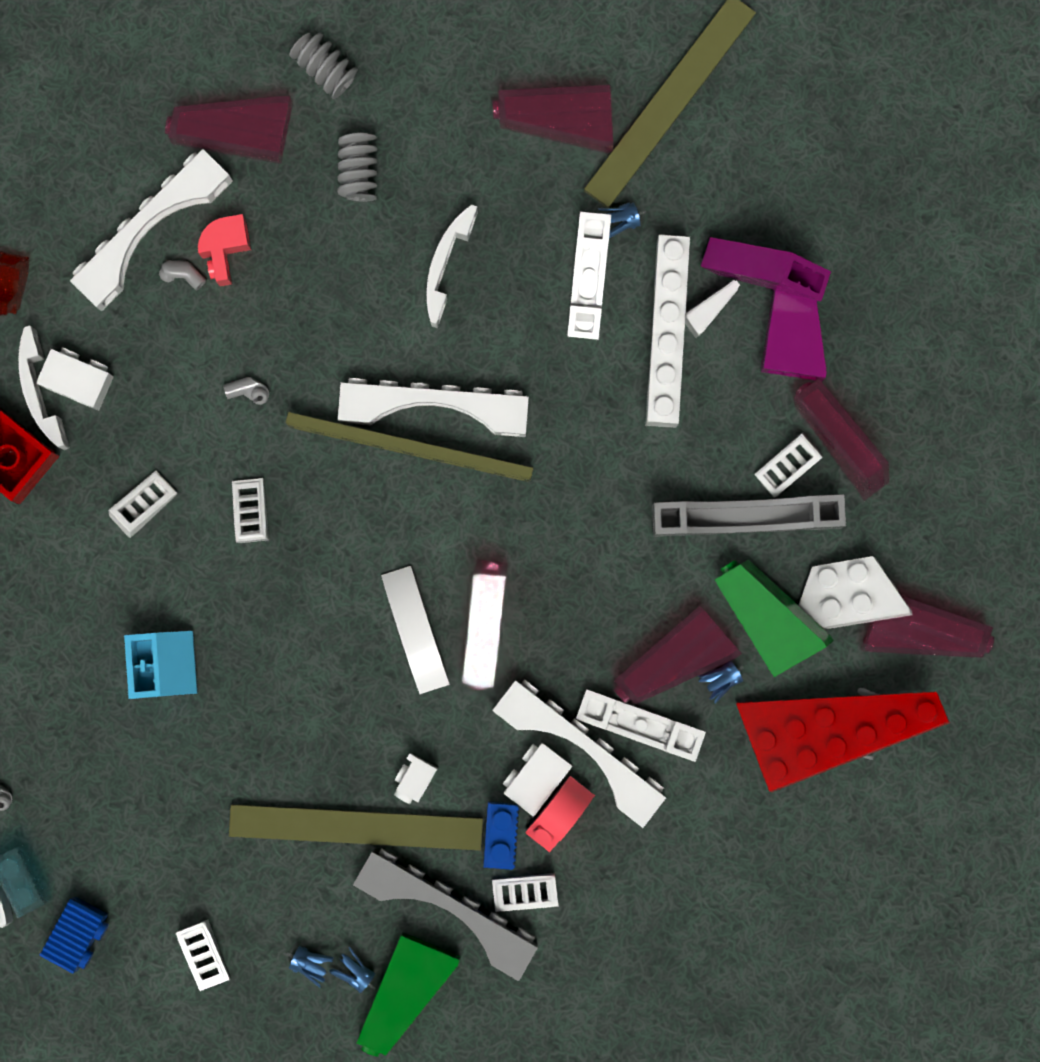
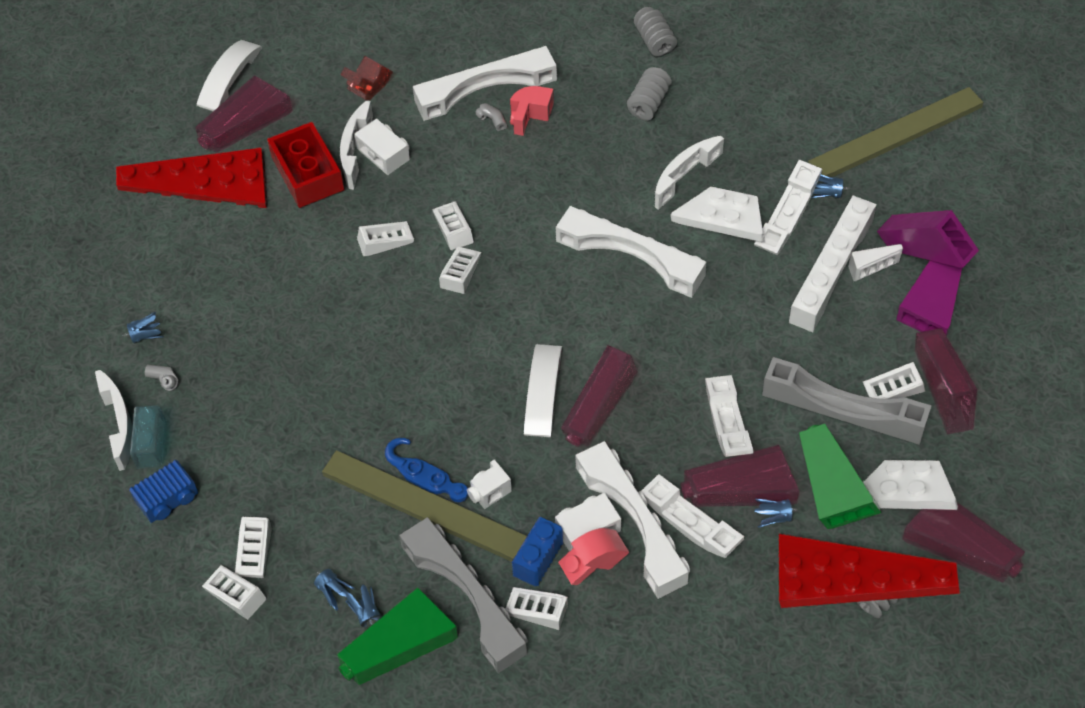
camera: 25 degrees right, 30 degrees down
(160, 664) = (337, 334): medium azure slope -> none
(234, 463) = (458, 237): none -> white slope
(234, 1016) = (246, 603): none -> white slope
(235, 128) = (575, 47): clear pink slope -> none
(248, 387) = (501, 195): light grey arm -> none
(337, 791) = (424, 474): none -> blue piece
(409, 447) = (602, 269): olive tile -> none
(516, 308) = (723, 213): none -> white wing
(560, 114) = (809, 111): clear pink slope -> none
(631, 588) = (727, 417): none -> white slope

